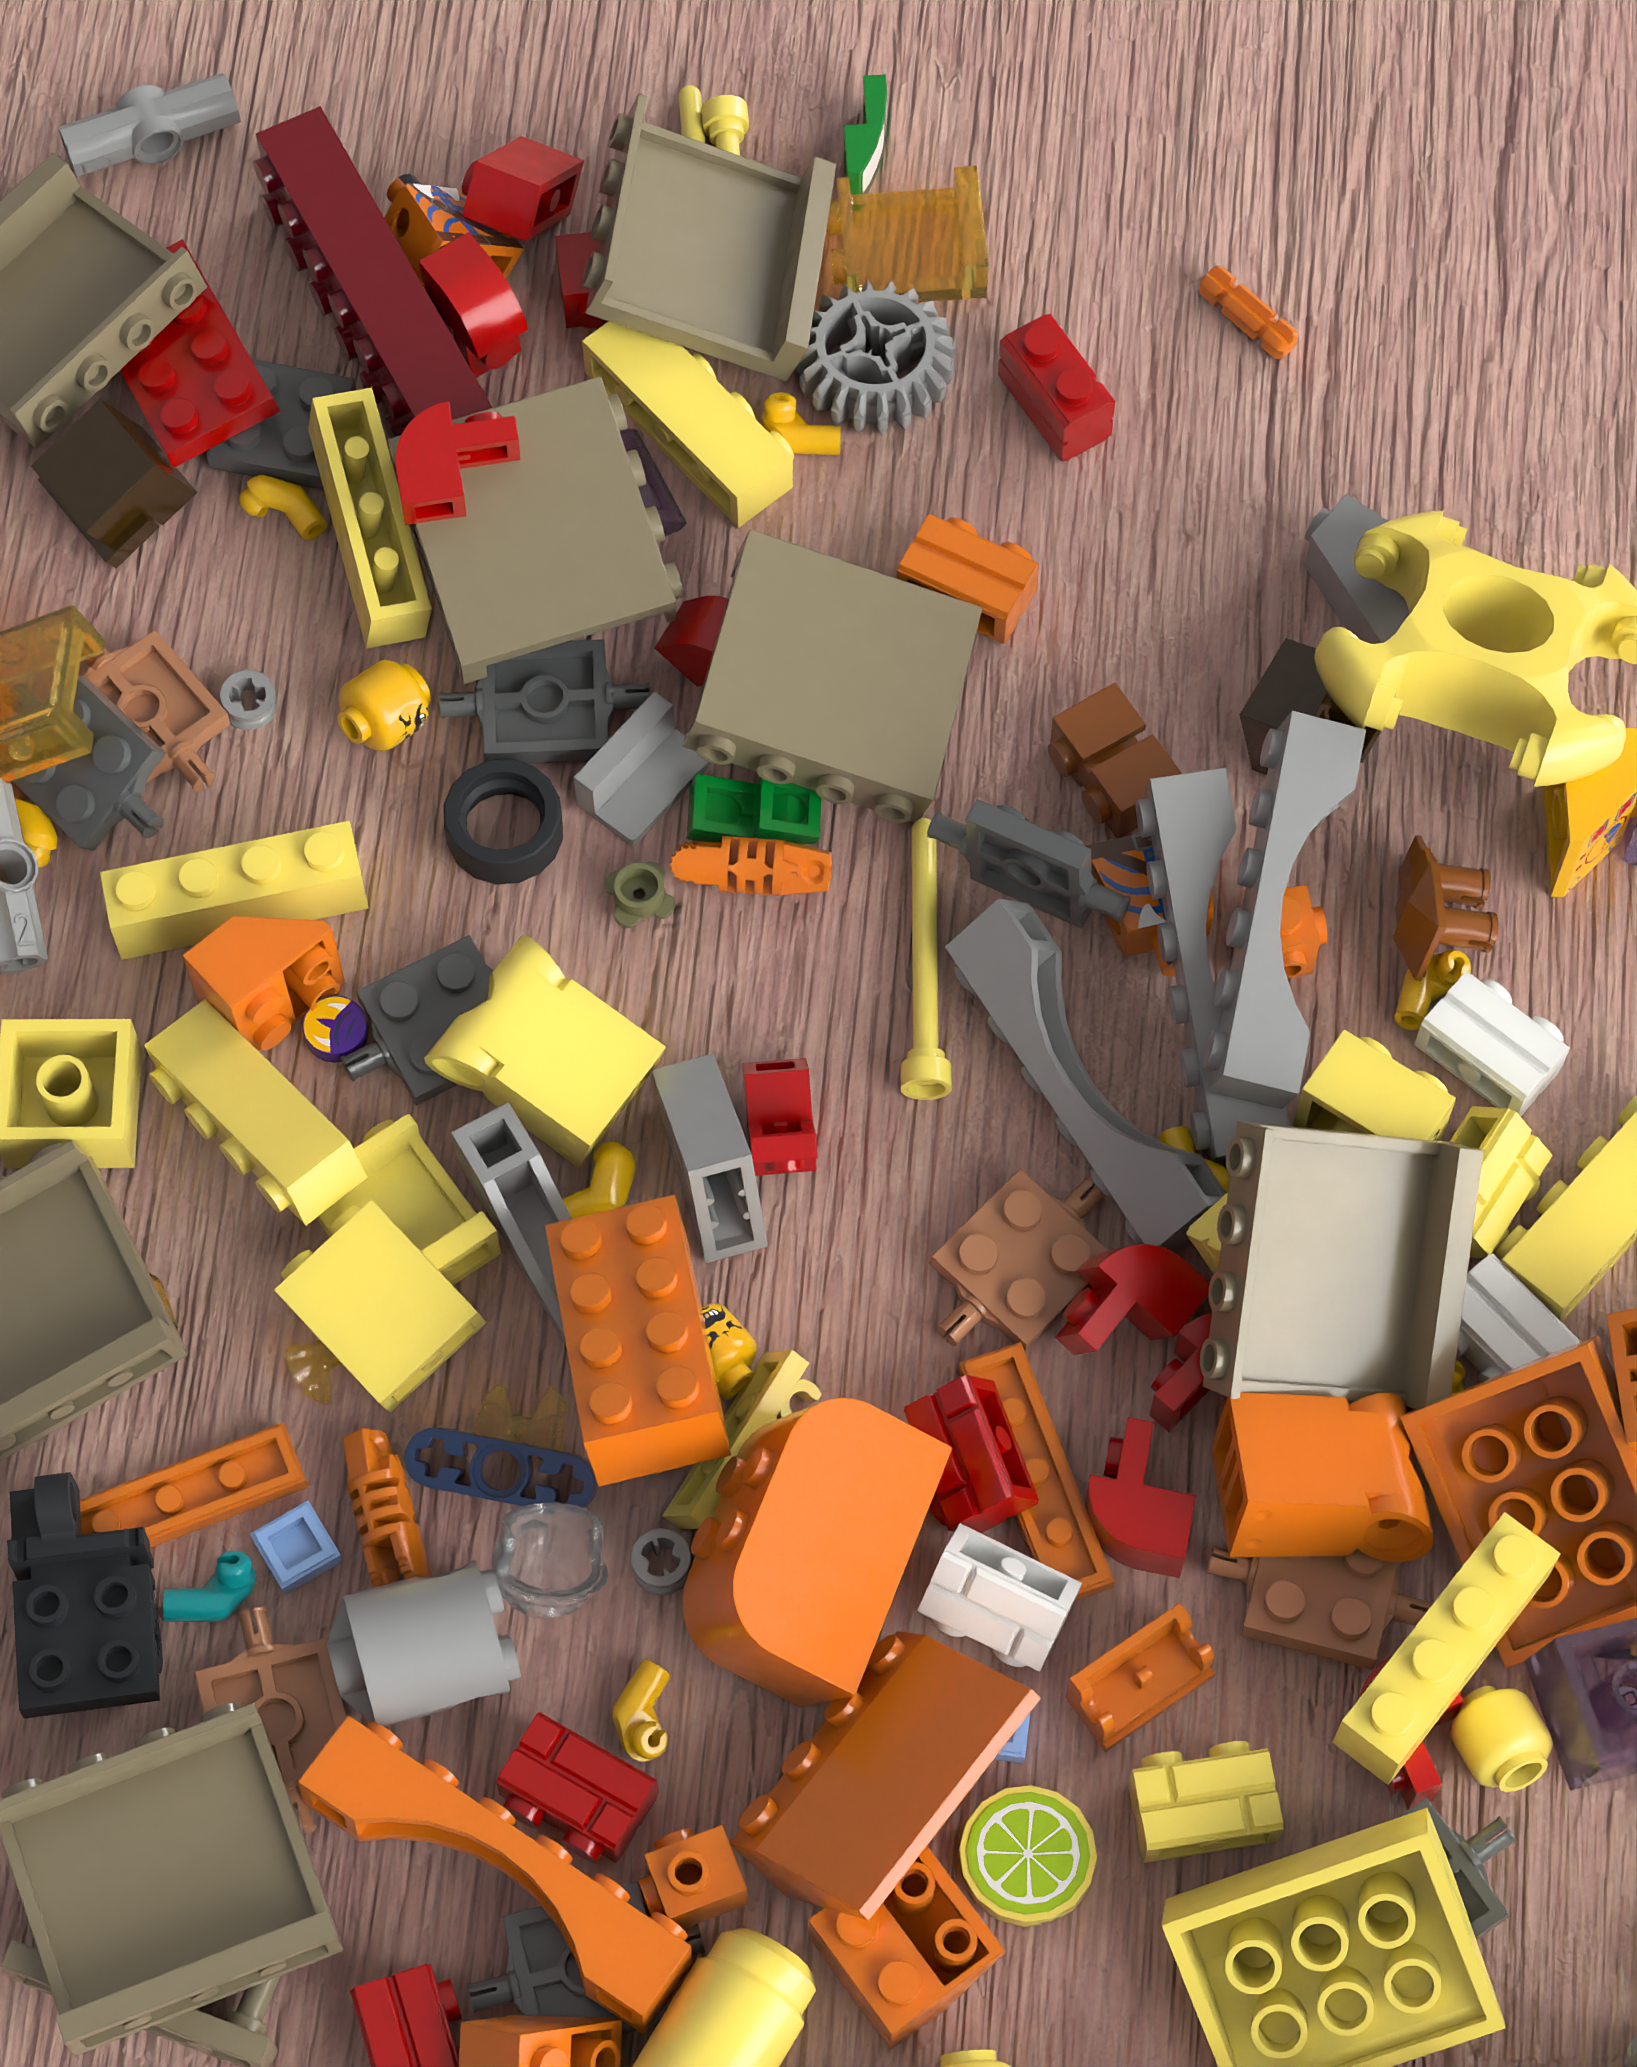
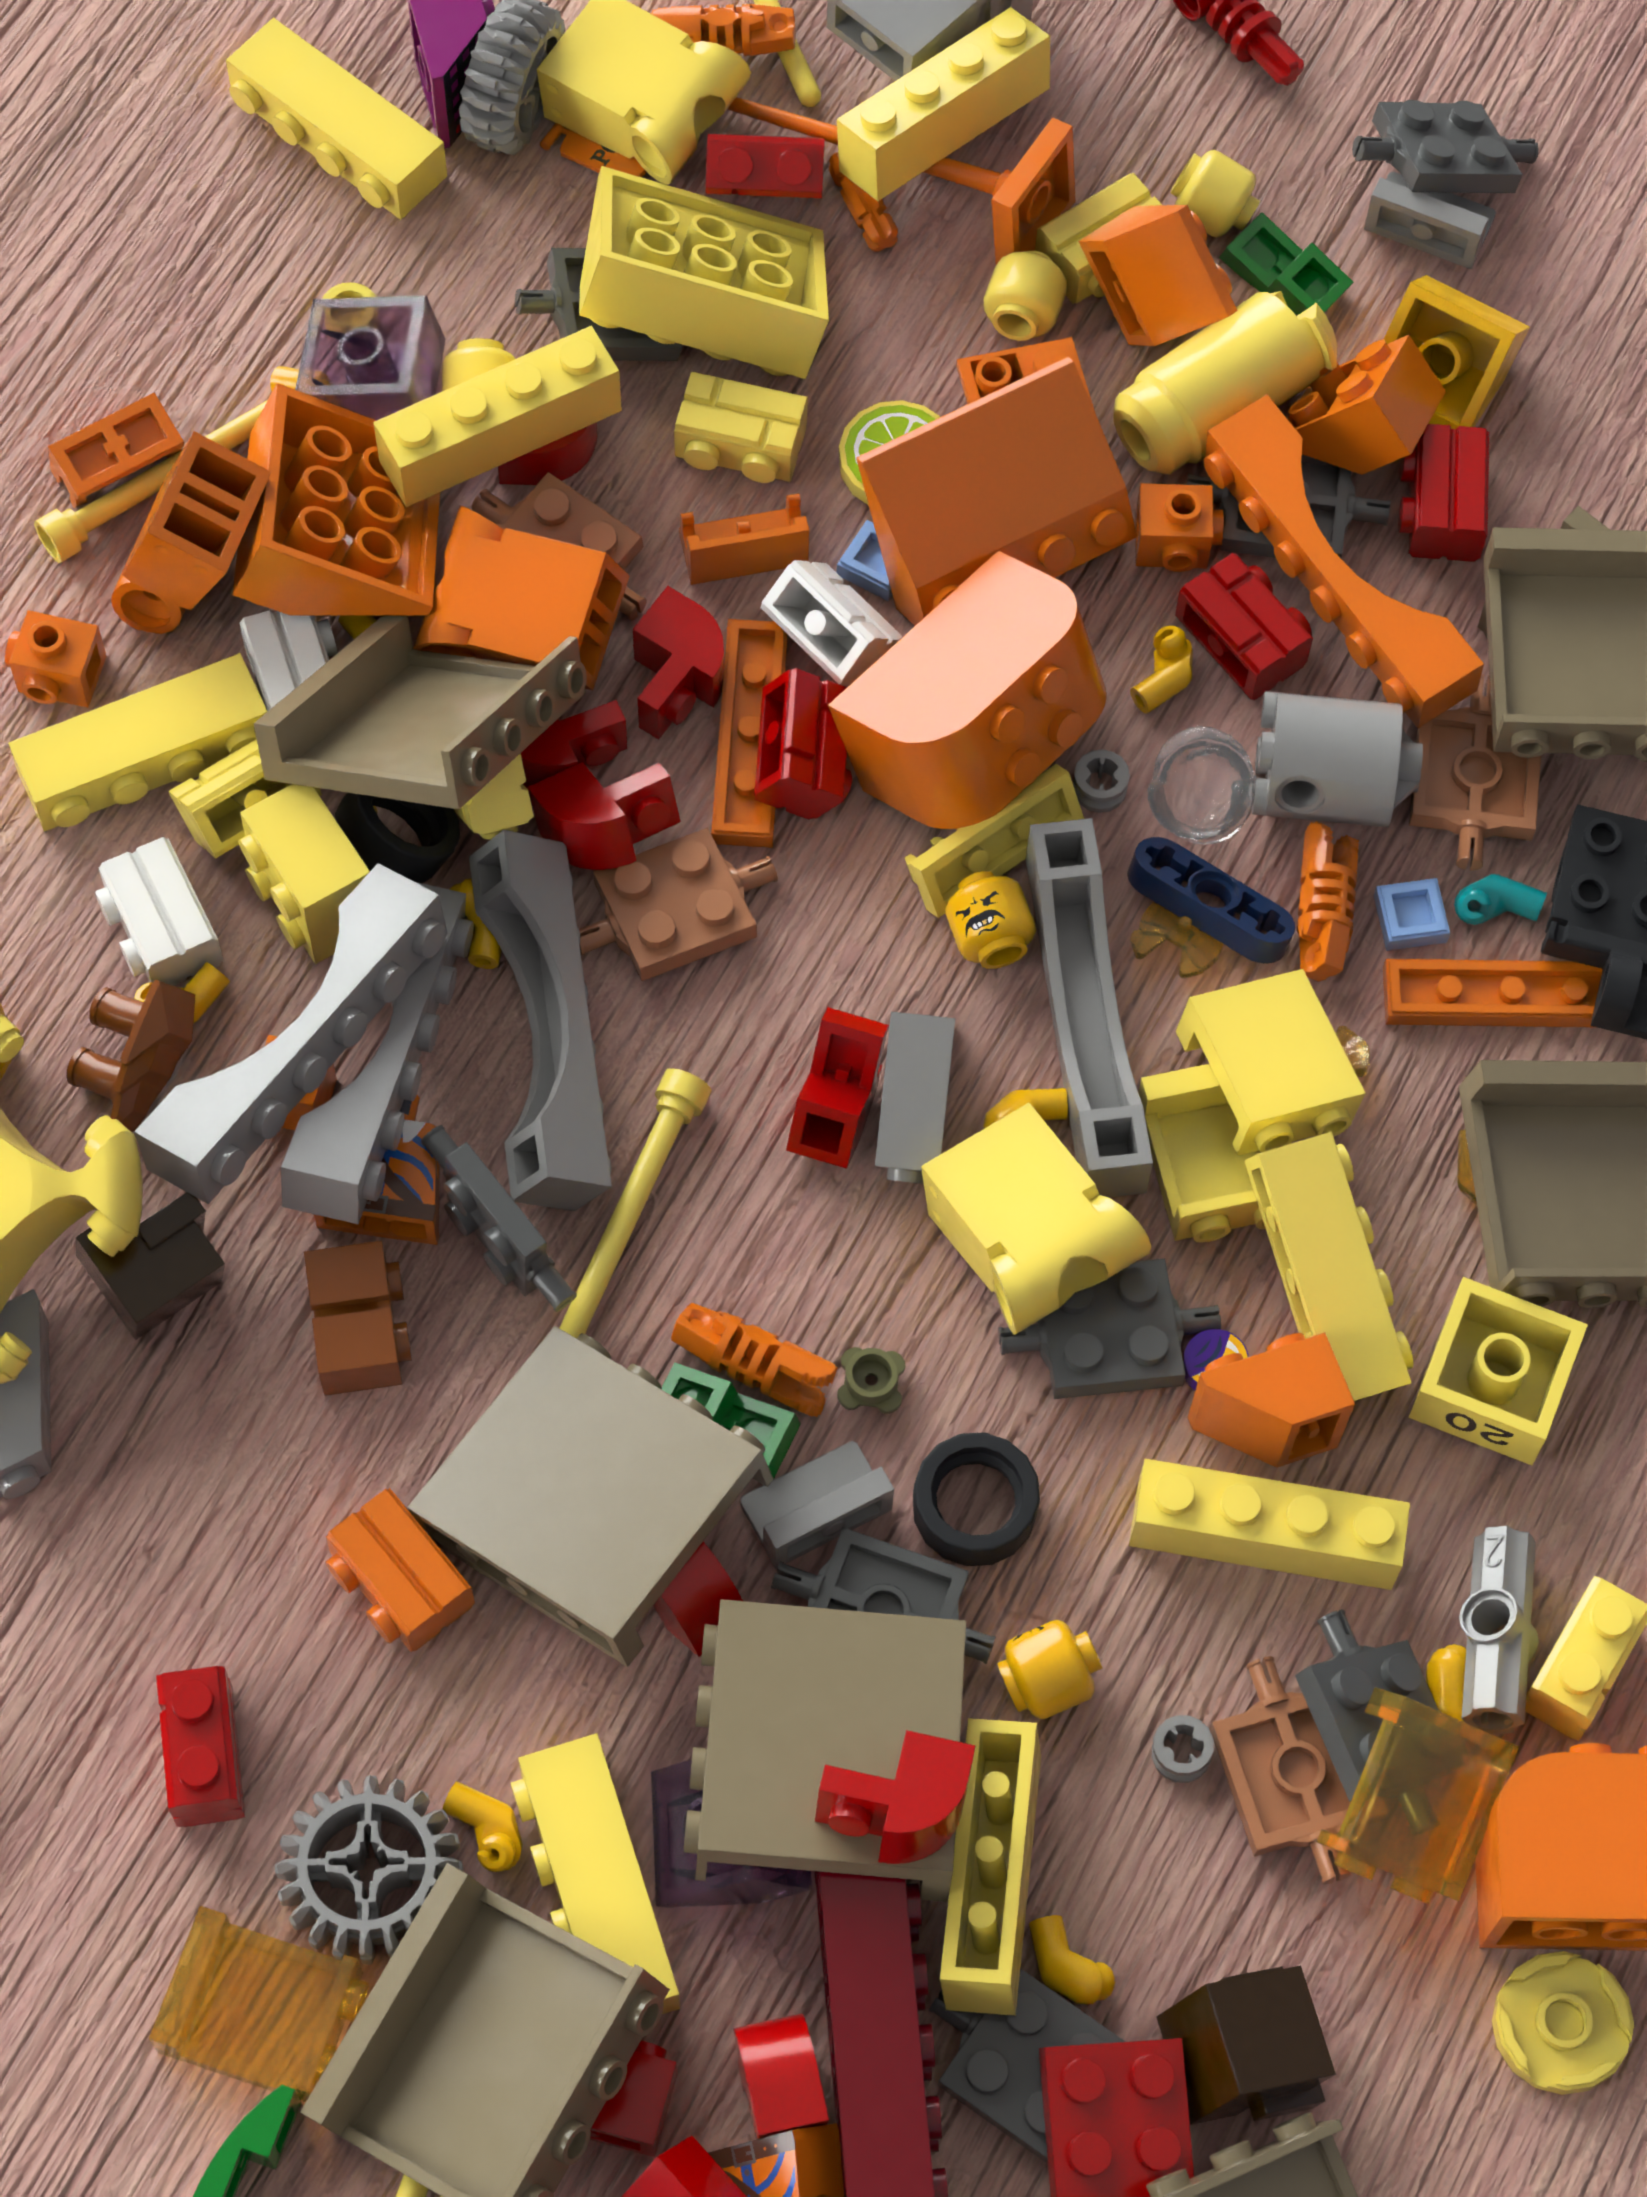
camera: 160 degrees left, 0 degrees up
(636, 1341) = (1062, 892): orange brick -> none

